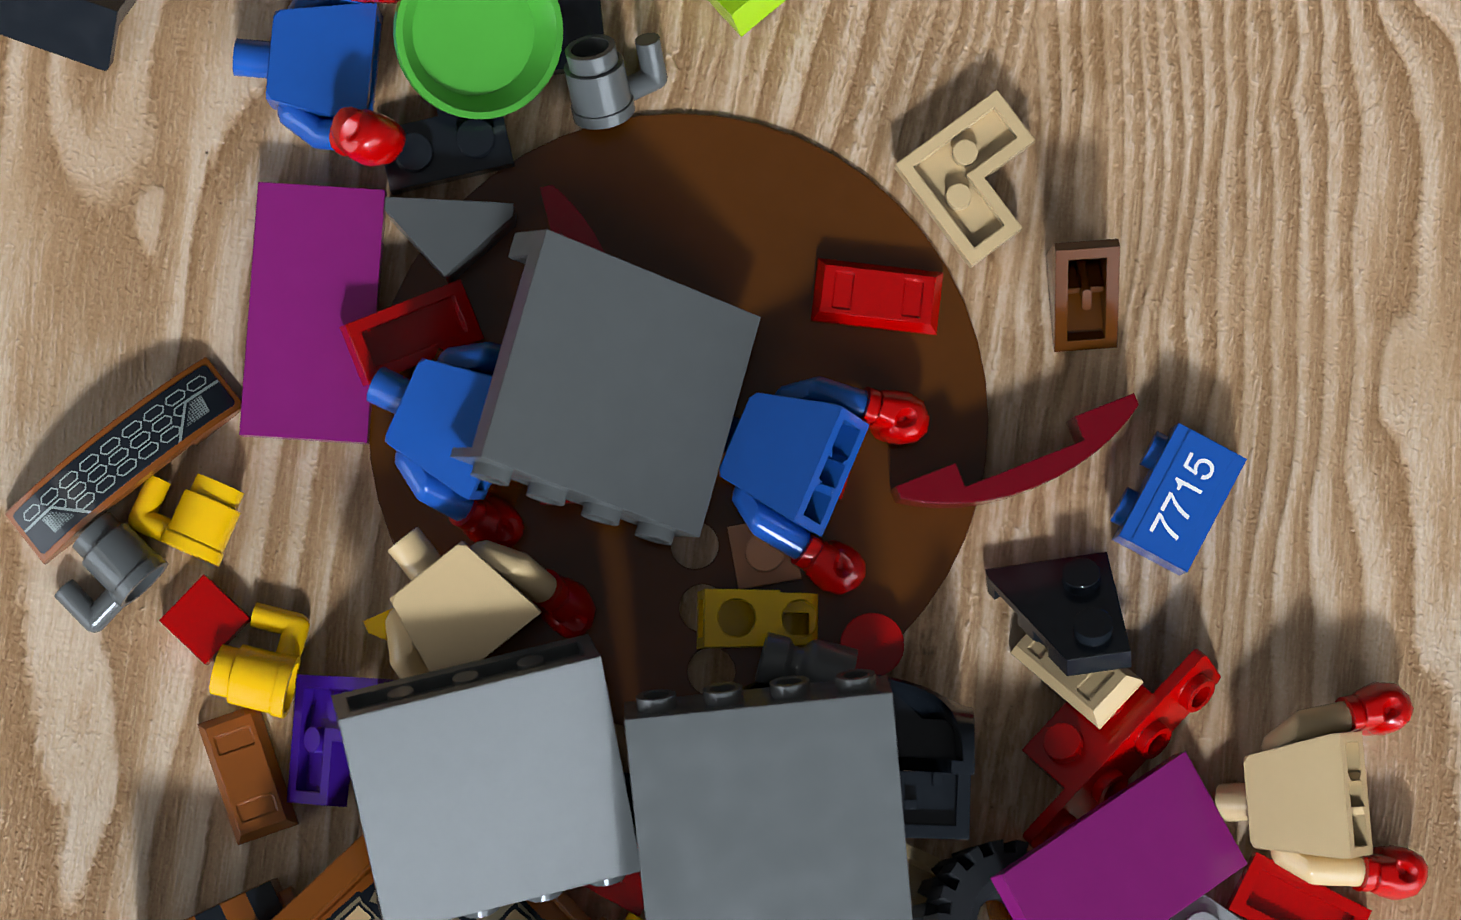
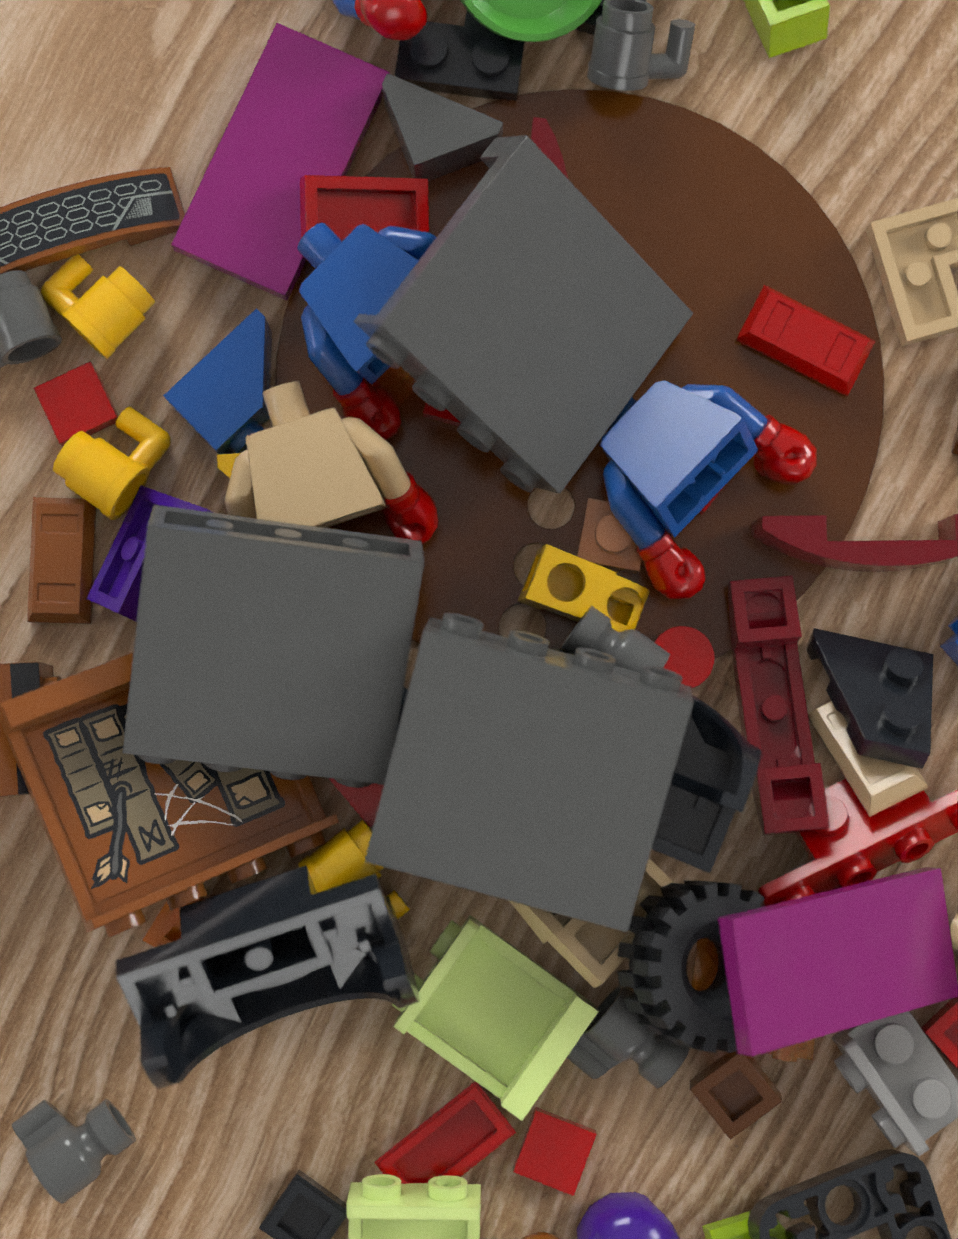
camera: 25 degrees right, 0 degrees up
(349, 553) = (225, 389): none -> blue slope
(975, 657) = (773, 705): none -> dark red slope

